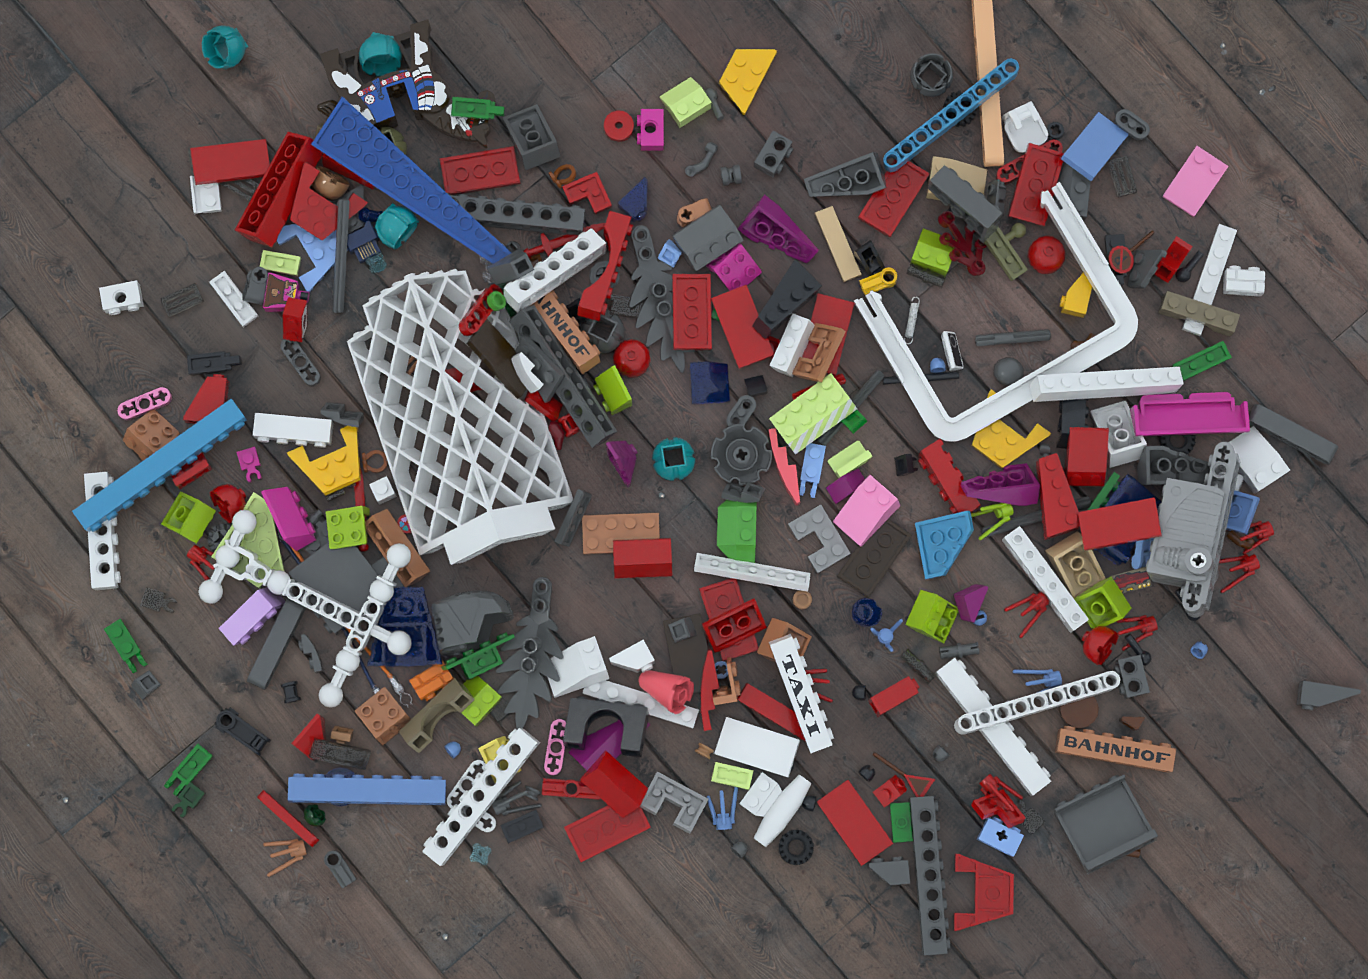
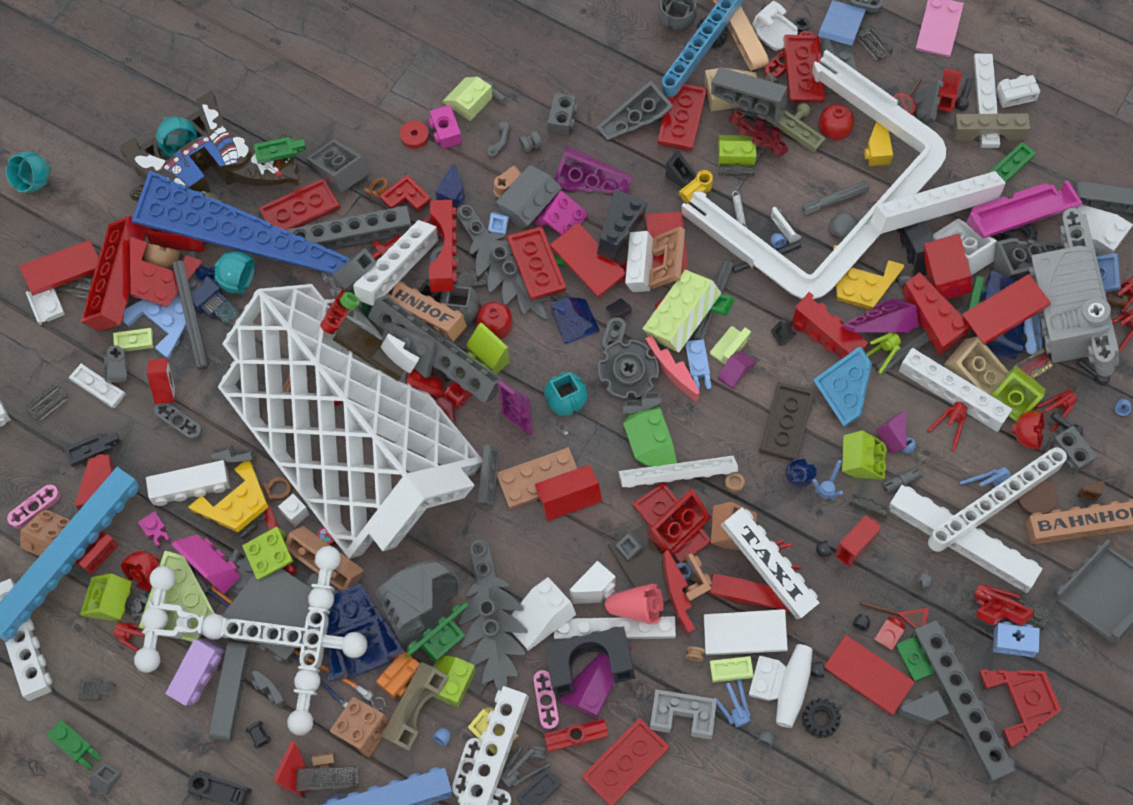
camera: 15 degrees left, 15 degrees down
(278, 291) = (136, 364): torso -> none
(615, 784) = (618, 714): red slope -> none
(746, 74) = (513, 62): yellow wing -> none
(833, 545) = (745, 425): light grey plate -> none
(838, 244) = (647, 170): tan tile -> none
(866, 510) = (764, 381): bright pink slope -> none

